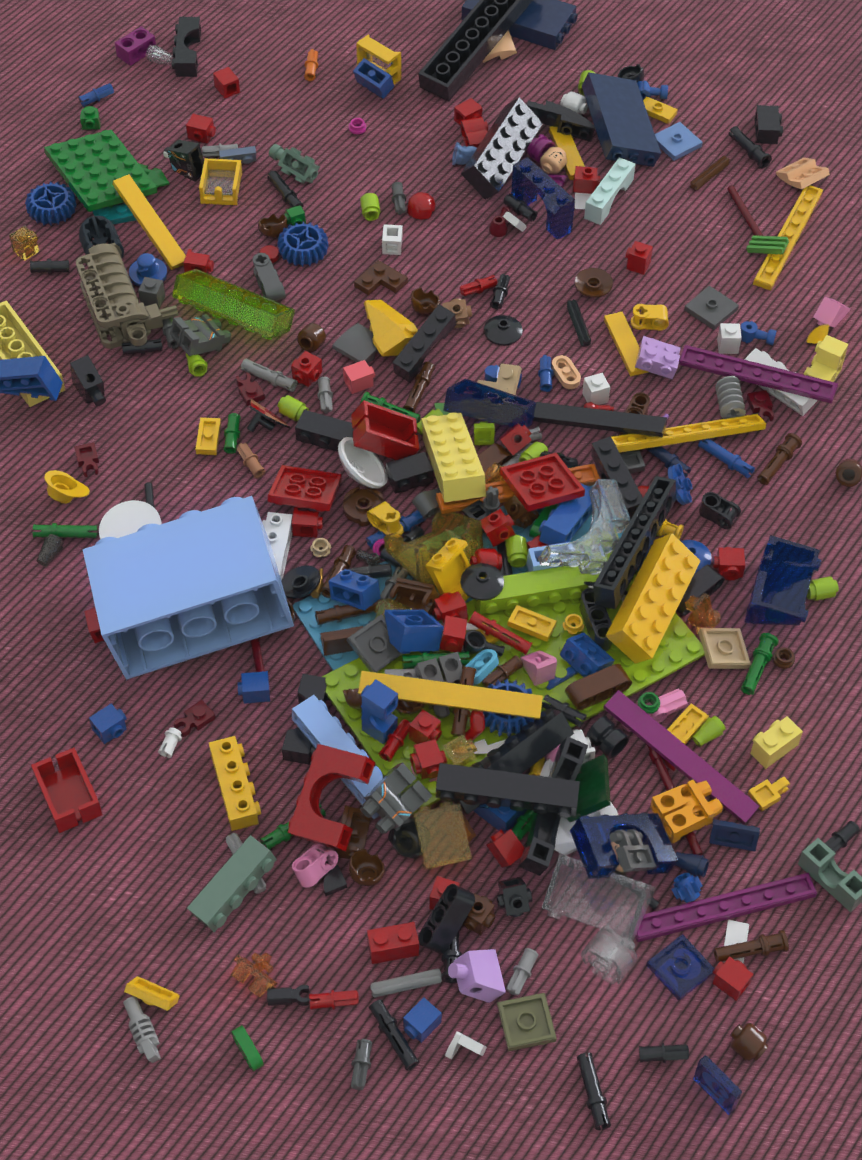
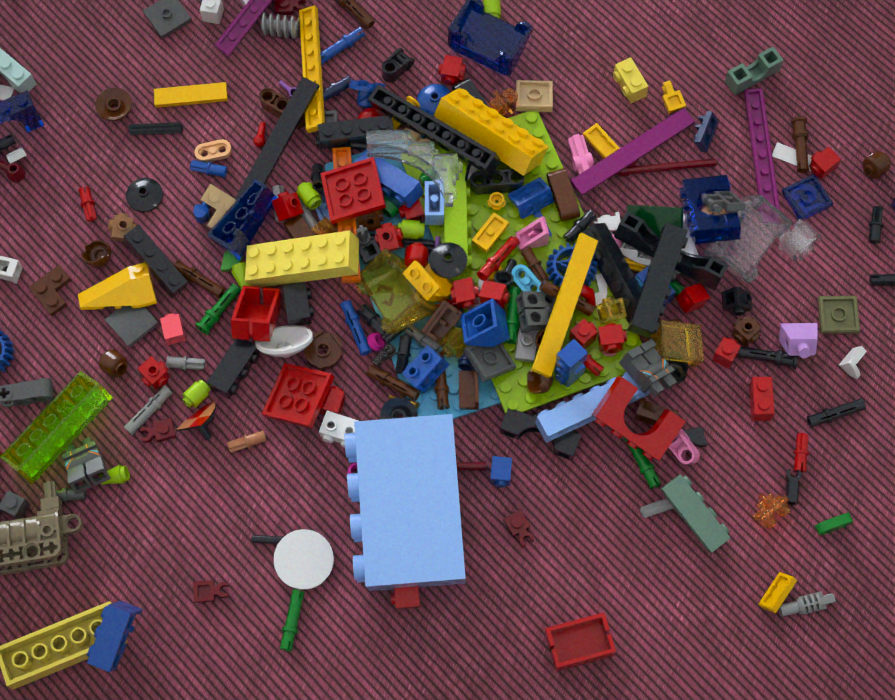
camera: 75 degrees left, 15 degrees up
(50, 549) = (311, 636): clear smoke cone -> none
(64, 487) = (244, 613): yellow piece -> none
(87, 381) = (112, 581): black torso -> none
(108, 723) = (514, 600): blue brick -> none
(149, 346) = (83, 515): black pin -> none
(171, 739) = (540, 550): white pin -> none
(208, 436) = (209, 475): yellow plate -> none
(232, 433) = (211, 453): green pin -> none
(234, 784) = (593, 502): yellow brick -> none
(320, 543) = (361, 390): tan plate -> none
(361, 1064) = (858, 441): dark grey axle -> none
(366, 868) = (693, 408): reddish brown hair -> none
(385, 519) = (350, 331): yellow piece -> none
(405, 982) = (793, 396): light grey axle -> none
(422, 1020) = (829, 389): blue brick -> none
(427, 503) = (341, 292): dark grey piece -> none
(446, 918) = (754, 343): black beam -> none
(484, 433) = (267, 232): lime tile -> none
(500, 292) = (100, 186): black axle -> none
(522, 971) = (796, 309): light grey axle -> none
(596, 389) = (242, 130): white brick -> none
(609, 739) = (605, 200): black wheel -> none
(639, 257) = (94, 59): red brick -> none
(649, 697) = (583, 156): green plate -> none
(651, 316) = (167, 67): yellow piece -> none
(658, 357) = (217, 71): lavender plate -> none
(685, 808) = (682, 158): light orange hips -> none
(686, 887) = (746, 175): blue gear -> none
(694, 864) = (726, 165): dark blue cone -> none
(710, 730) = (609, 125): lime cone -> none
(761, 655) = (546, 70): green pin -> none
(784, 653) = (550, 51): reddish brown plate -> none
(840, 838) = (719, 59): black axle -> none

